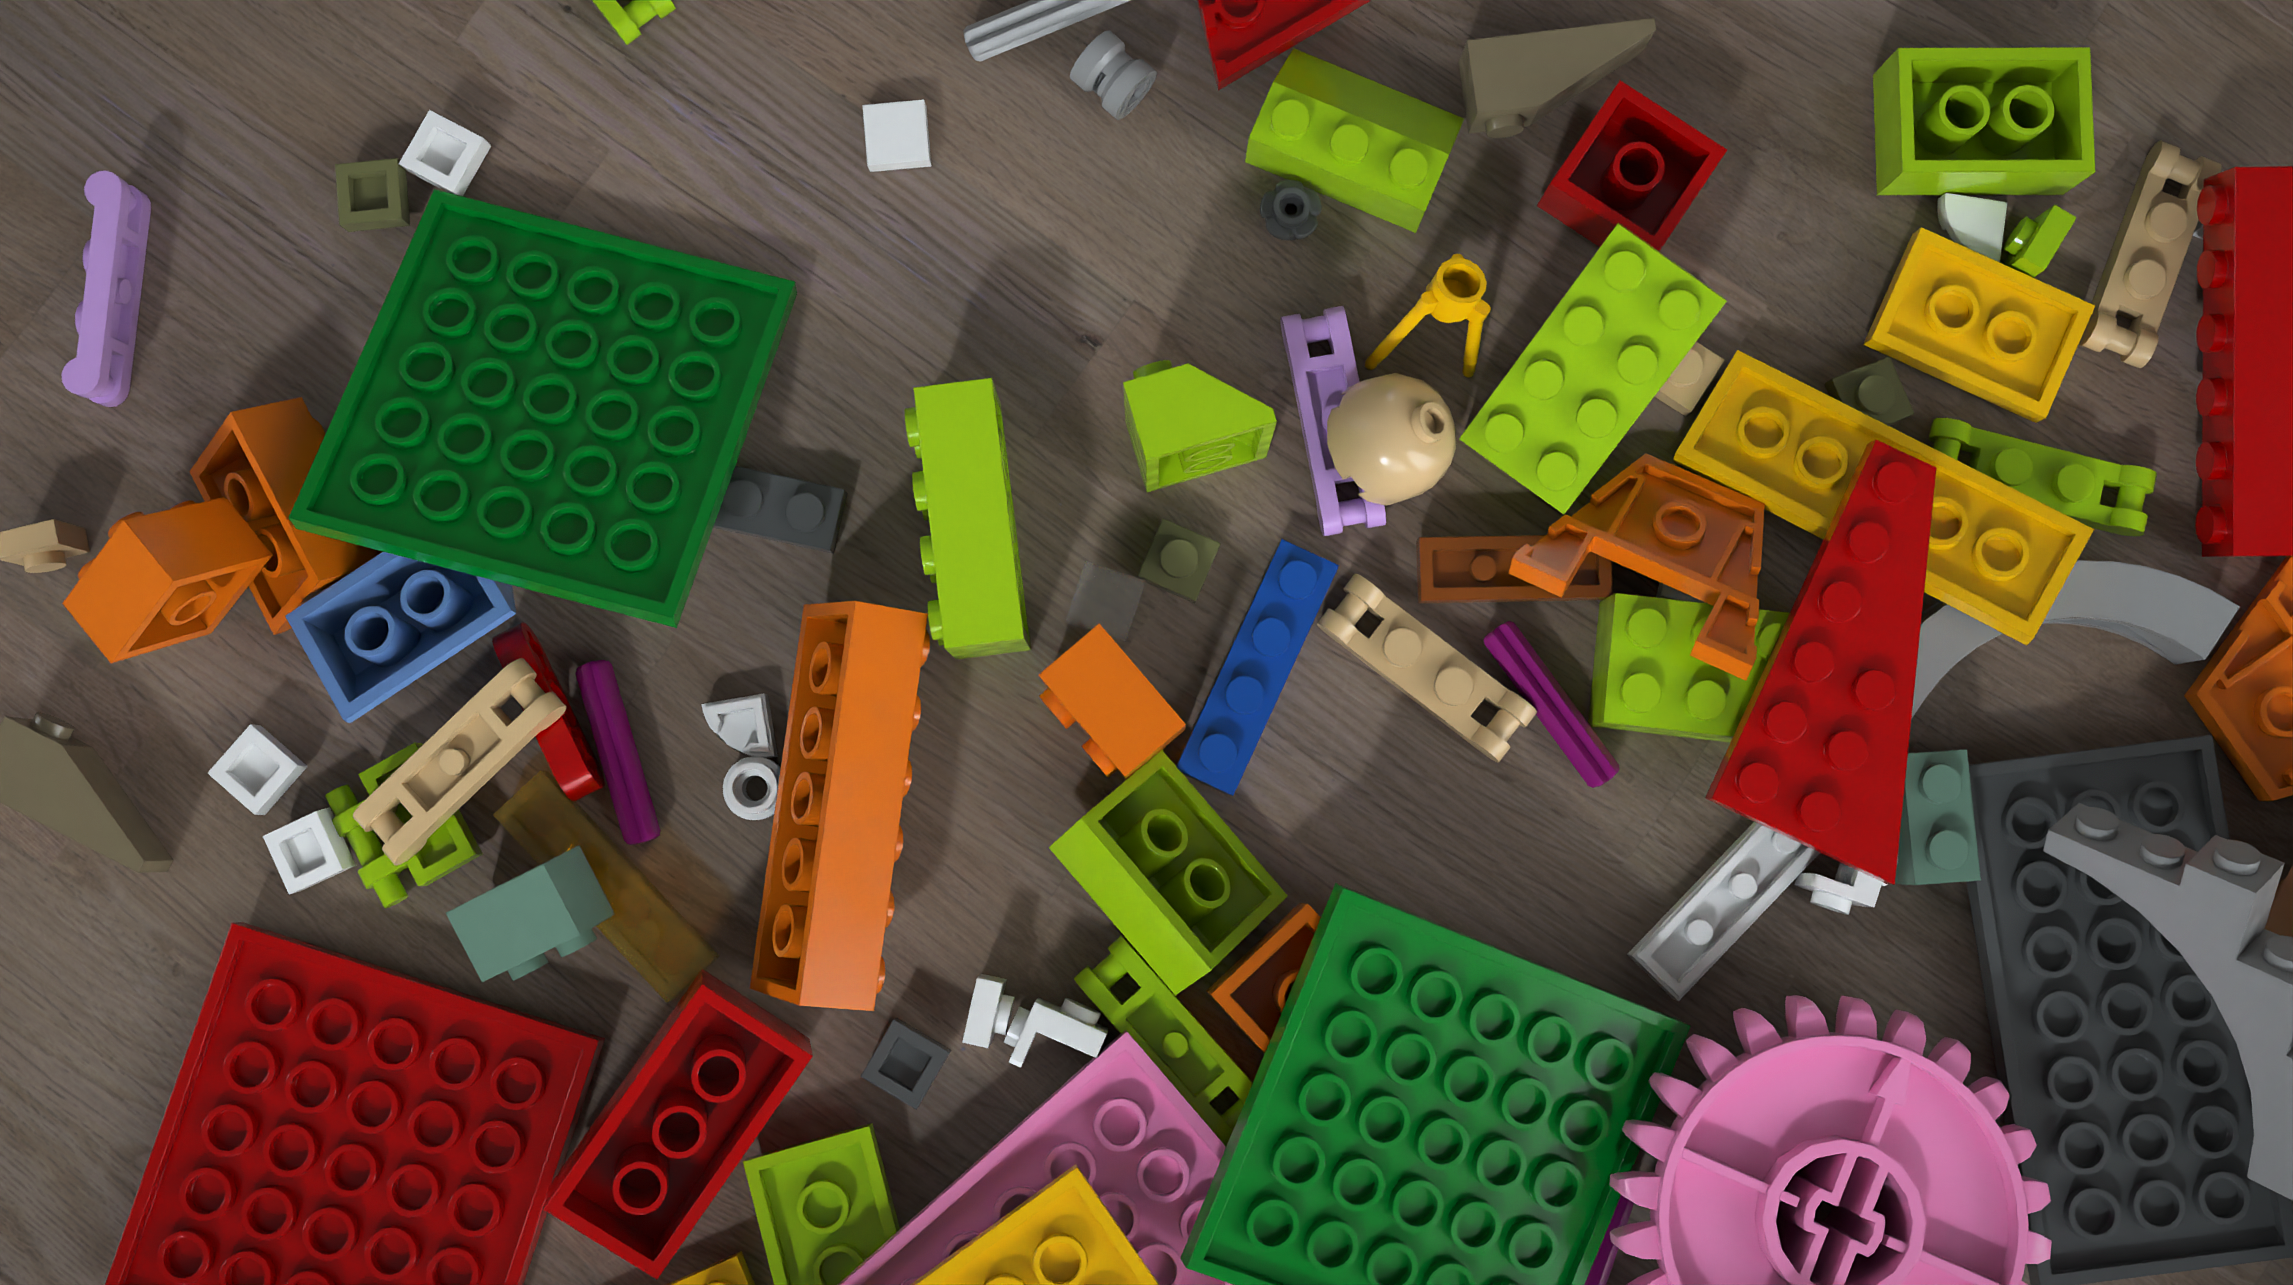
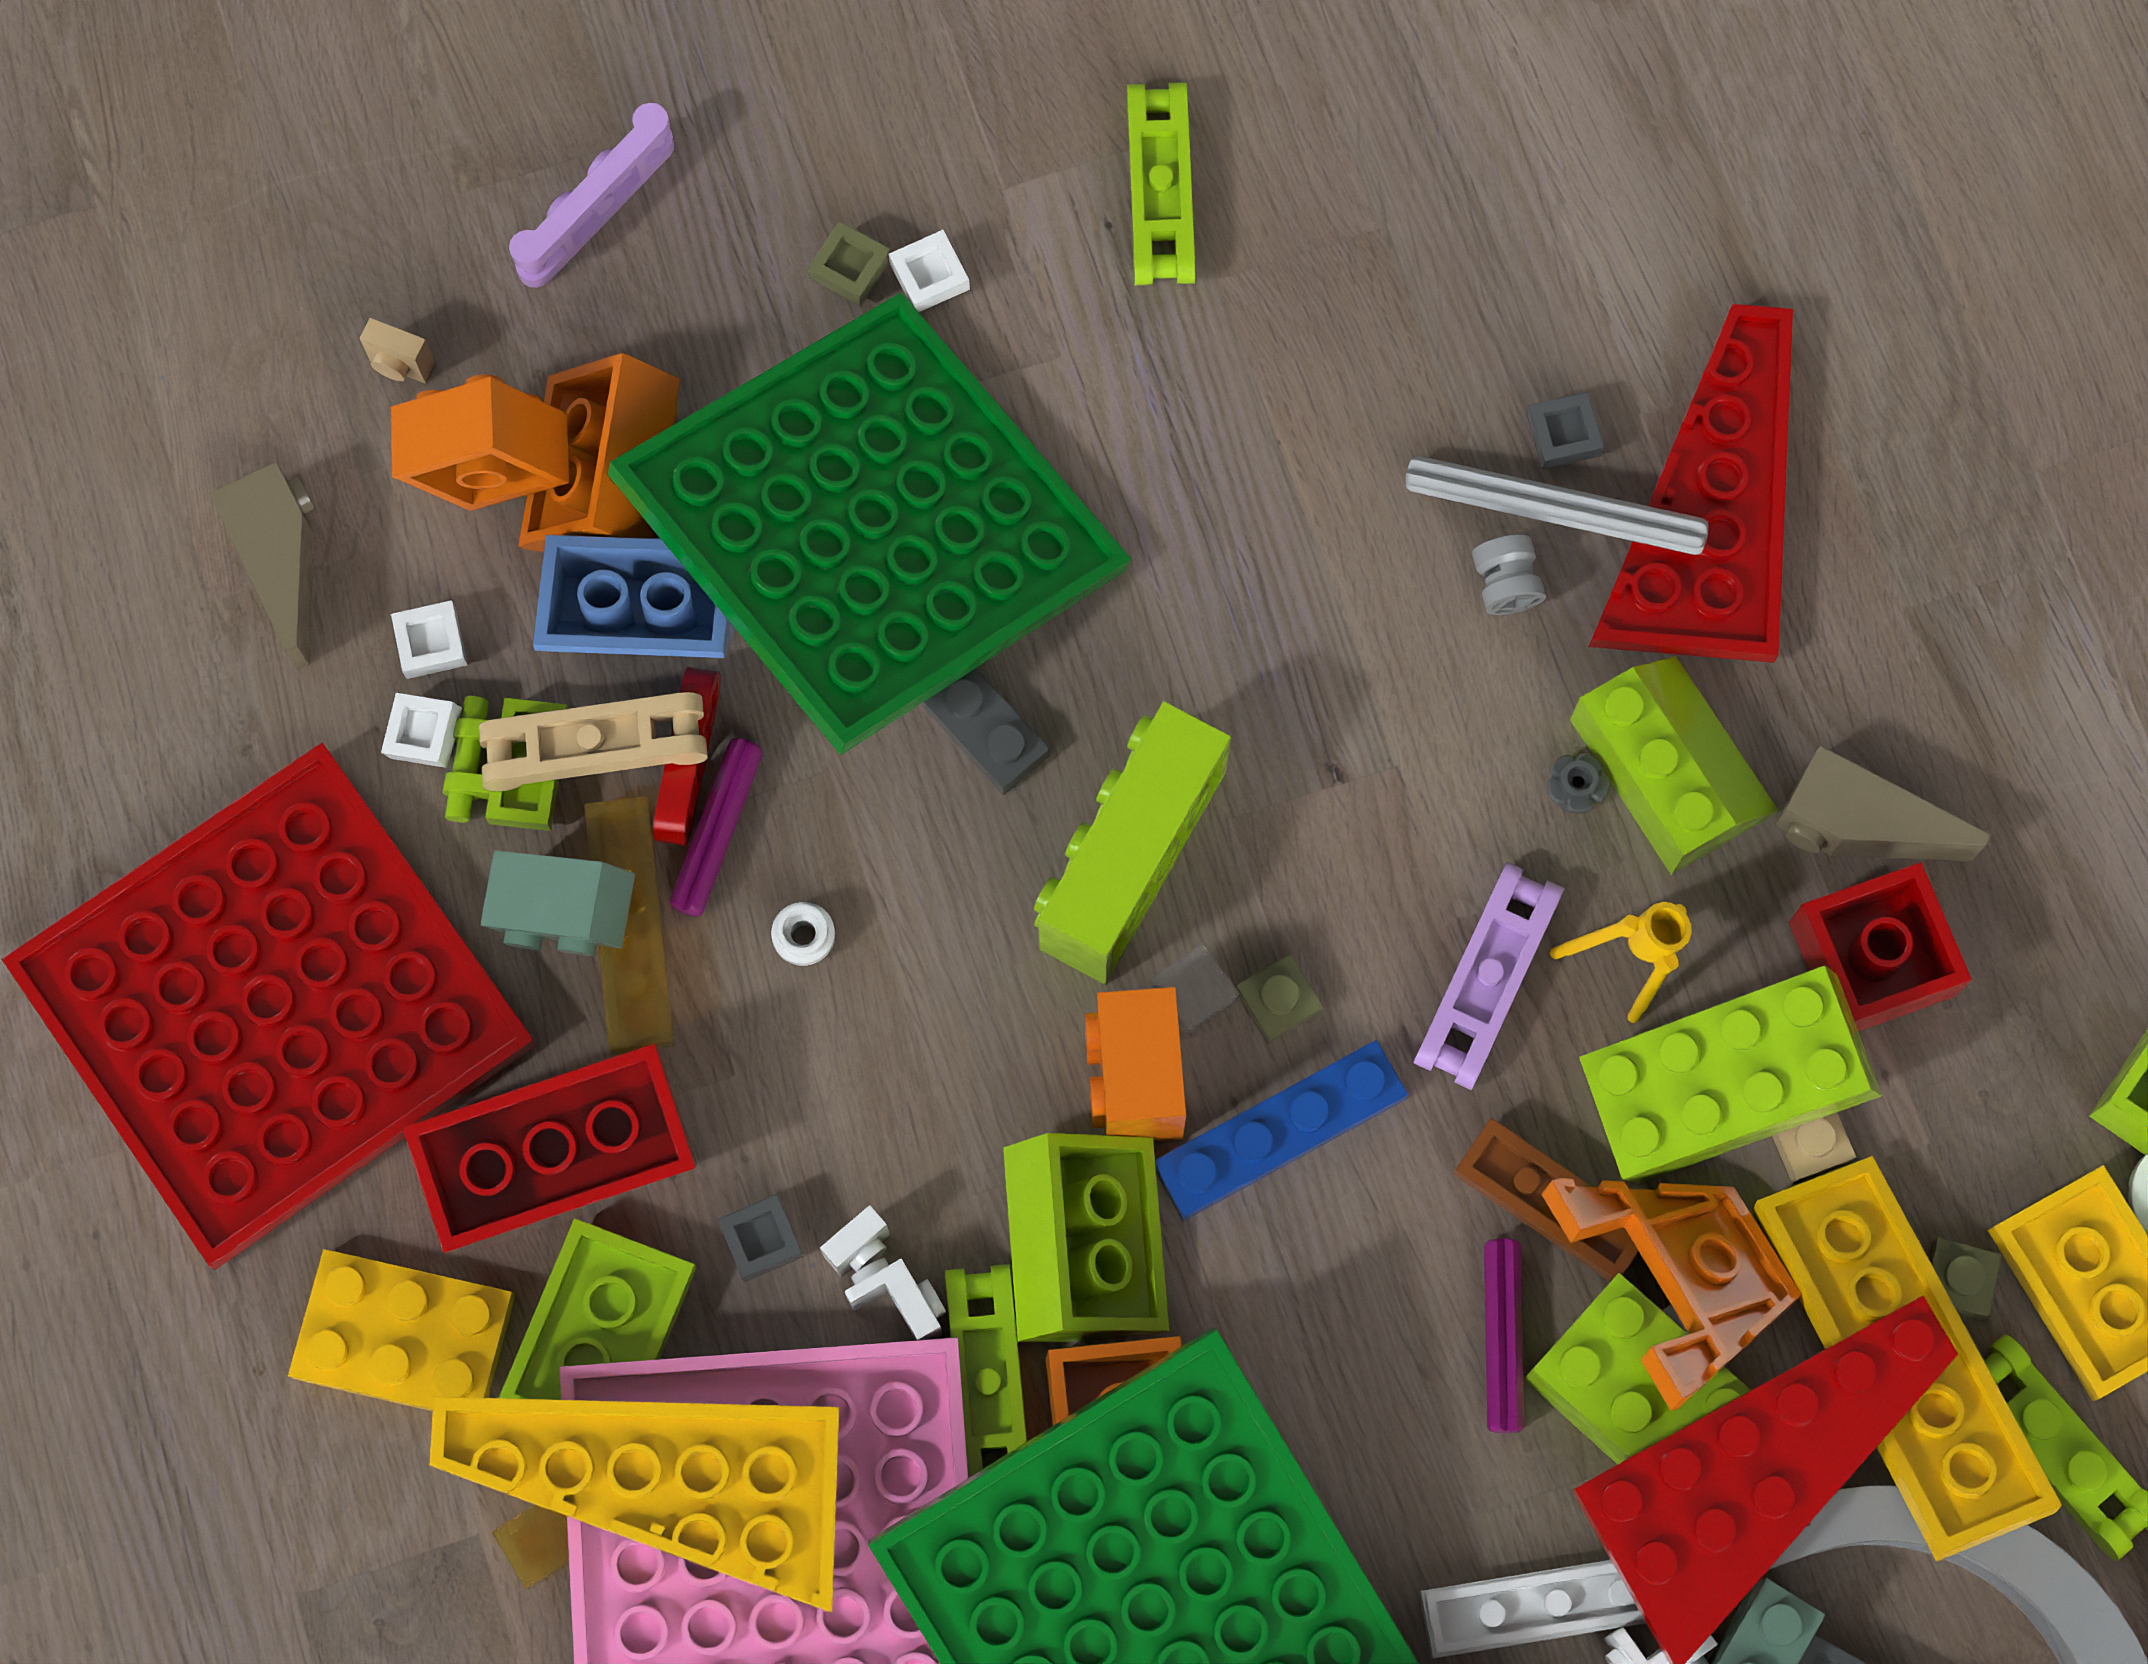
camera: 35 degrees right, 10 degrees down
(743, 724) = (831, 877): white tile -> none
(840, 805) = (864, 987): orange brick -> none
(896, 135) = (1298, 502): white tile -> none
(1191, 424) = (1364, 889): lime slope -> none
(1391, 437) = (1524, 1018): tan cylinder -> none
(1426, 668) = (1420, 1231): tan plate -> none

